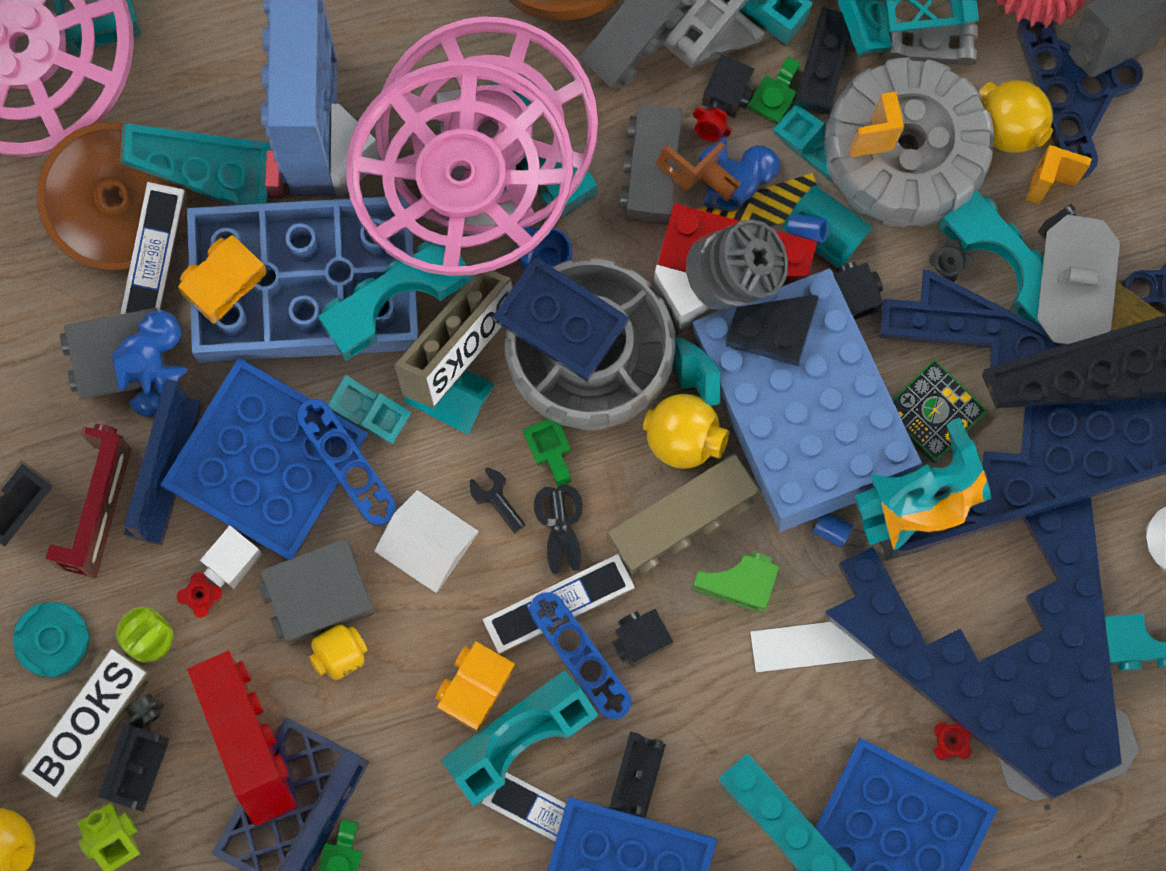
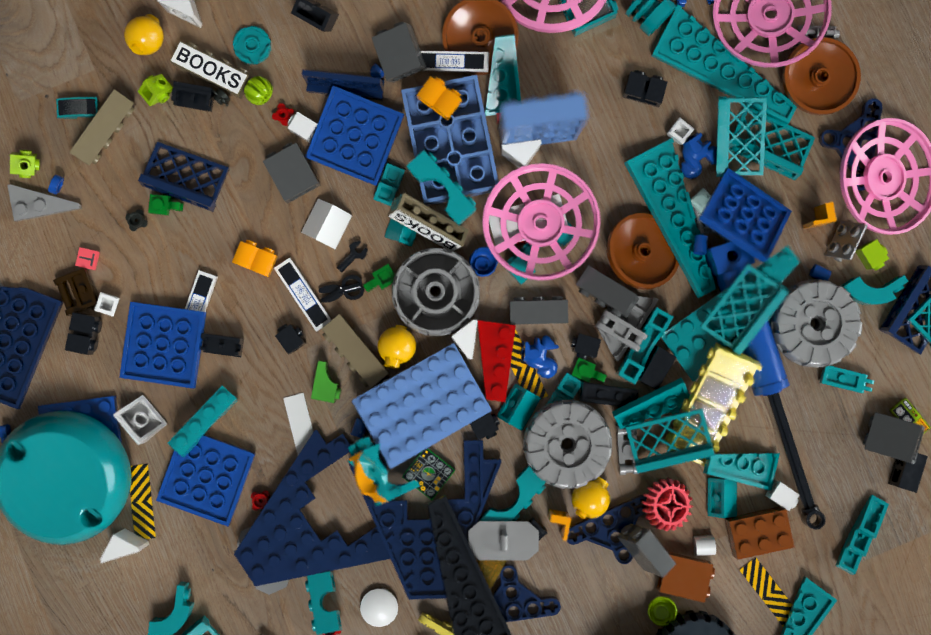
camera: 85 degrees right, 10 degrees up
(98, 506) = (319, 57): dark red panel -> none
(140, 357) = (393, 64): blue animal -> none
(242, 738) = (212, 146): red wedge -> none
(337, 652) = (263, 187): yellow head -> none
(342, 465) = (355, 174): blue beam -> none
(456, 149) = (511, 198): bright pink dish -> none
(550, 711) = (215, 266): teal arch -> none
(561, 318) = (441, 274): dark blue plate -> none
(585, 651) = (277, 308): blue beam -> none
(697, 370) = (429, 348): teal slope -> none
(706, 170) = (534, 340): dark orange bracket -> none
(711, 124) = (564, 339): red plate -> none
(737, 265) = (479, 361): dark grey wheel -> none
(773, 328) = (453, 385): black wing -> none
(808, 227) = (512, 396): blue hinge -> none
(884, 131) = (566, 430): light orange panel -> none
(940, 260) = (503, 473): pearl dark grey plate -> none

